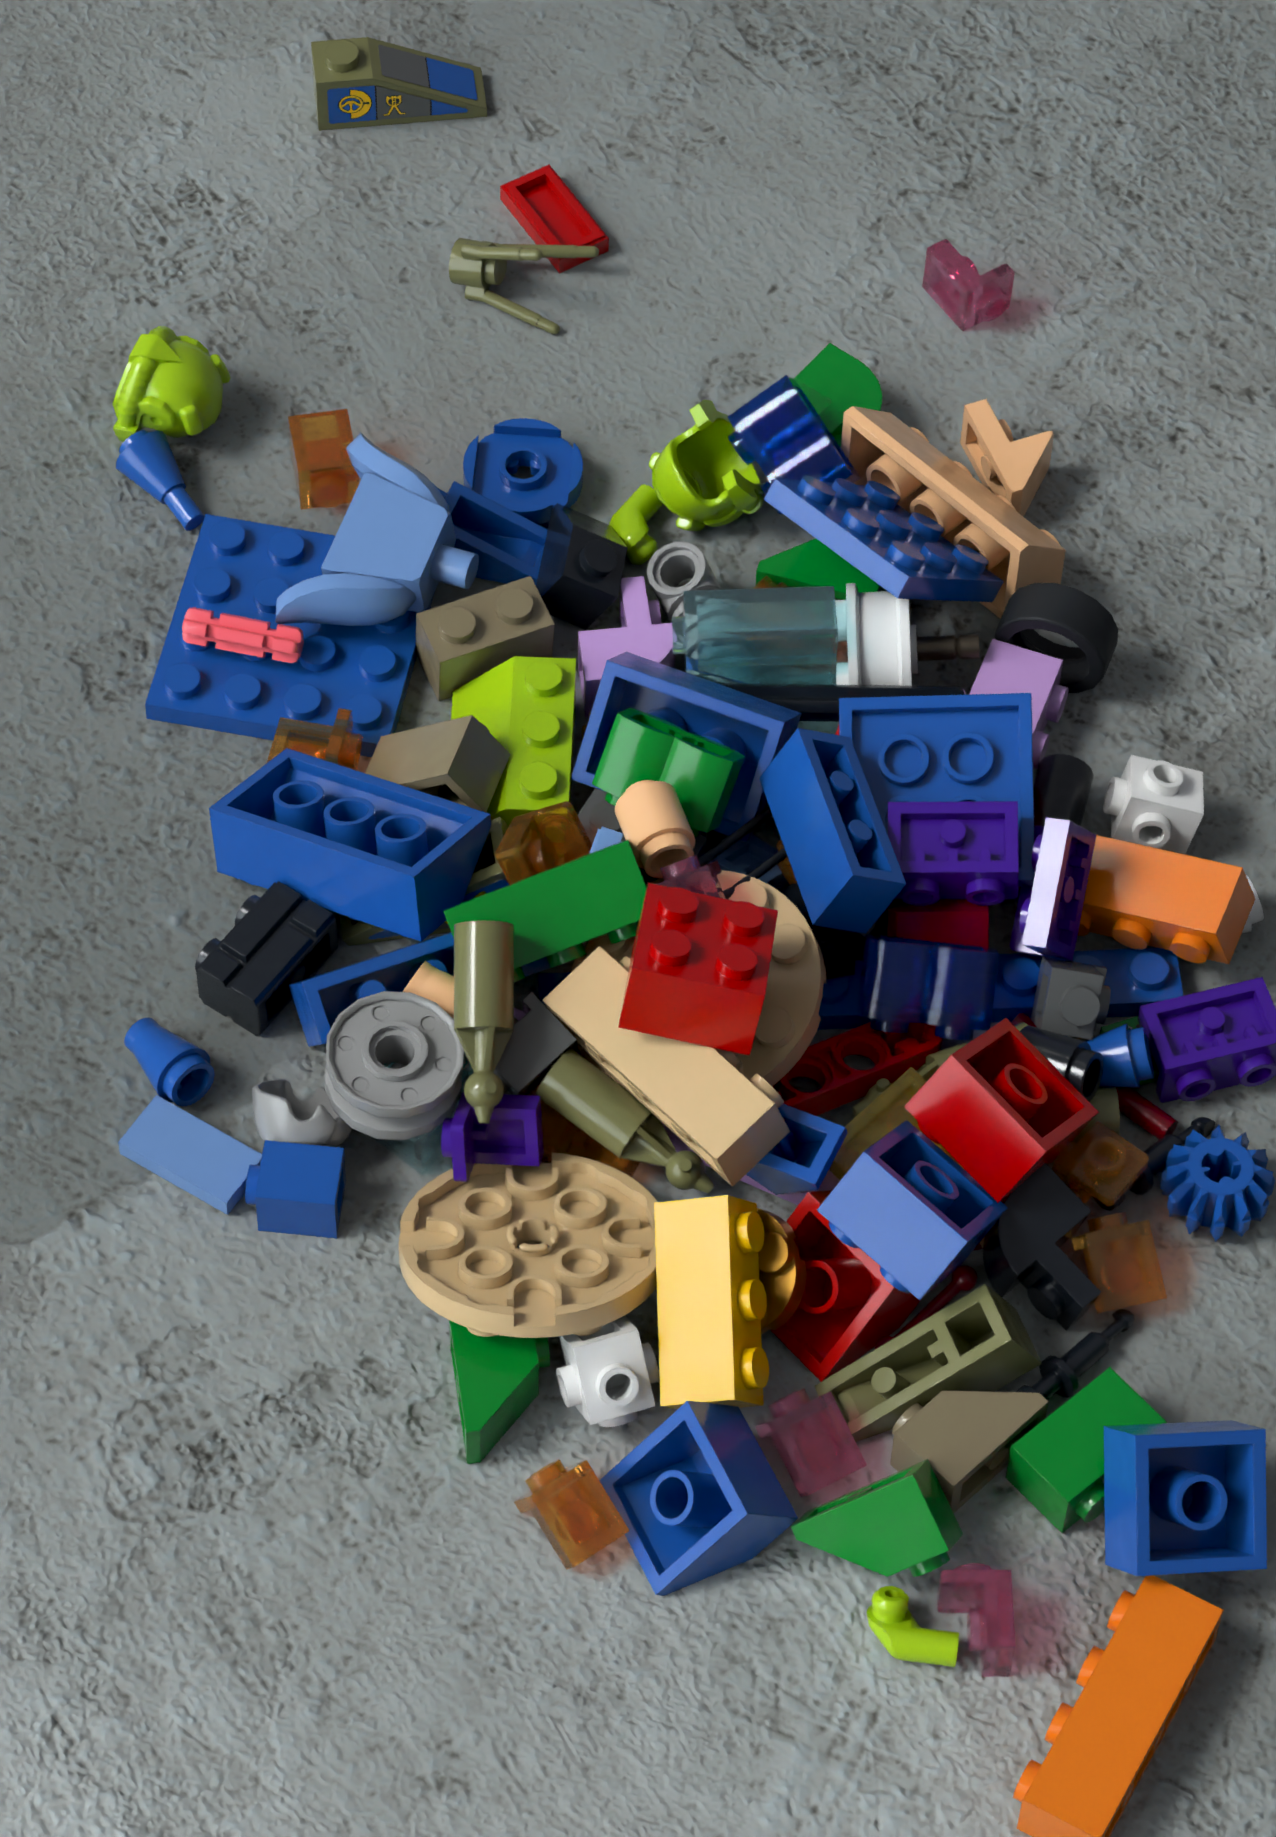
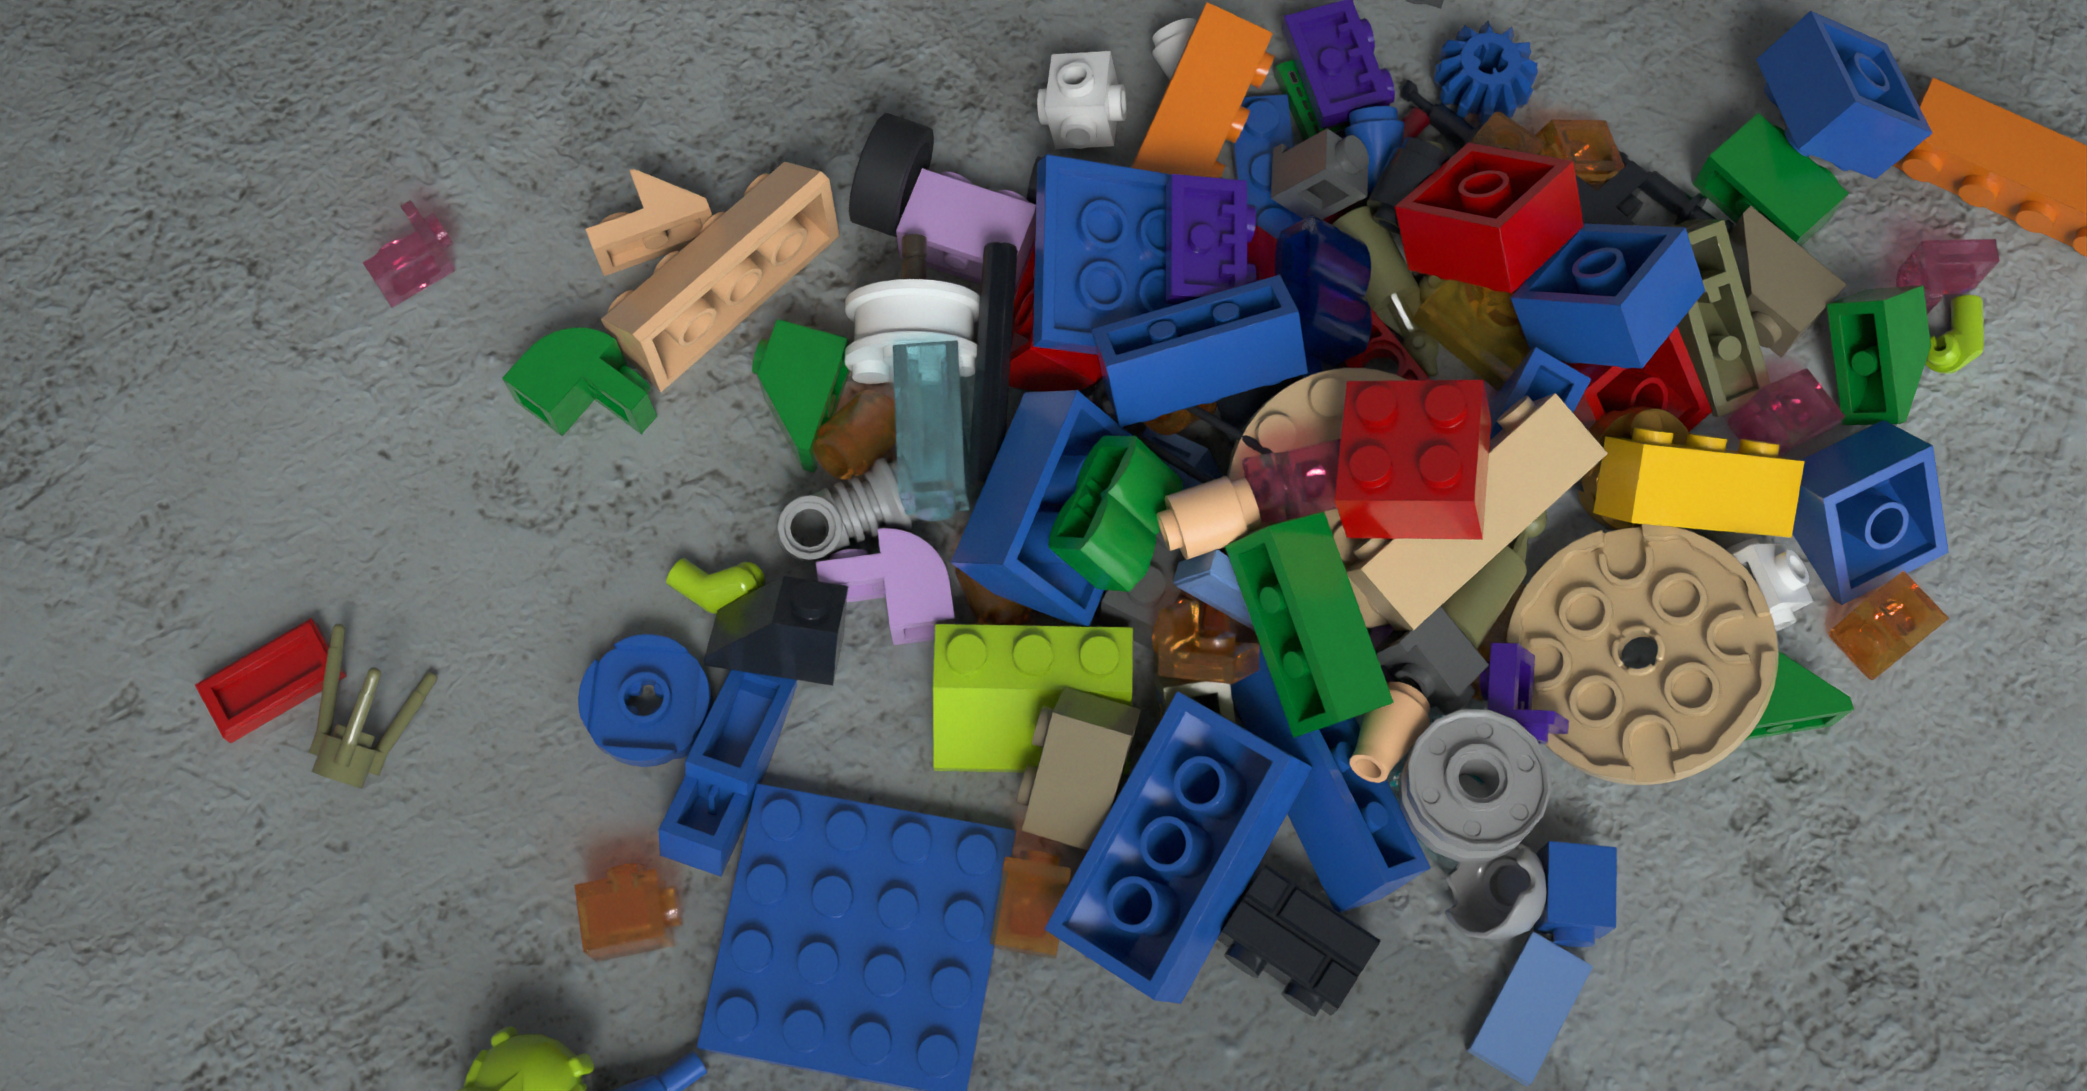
camera: 90 degrees left, 15 degrees up
(172, 1064) = (1428, 1037): blue cone -> none
(242, 635) = (891, 987): coral axle -> none
(386, 551) = (792, 821): medium blue torso -> none
(388, 84) = (55, 868): slope -> none
(480, 633) = (884, 728): dark tan brick -> none
(483, 1006) = (1433, 682): olive wheel -> none
(703, 474) = (668, 505): lime helmet -> none
(788, 437) = (658, 409): clear blue brick -> none
(885, 540) = (803, 312): blue plate -> none
(1052, 908) = (1209, 153): dark purple bracket -> none

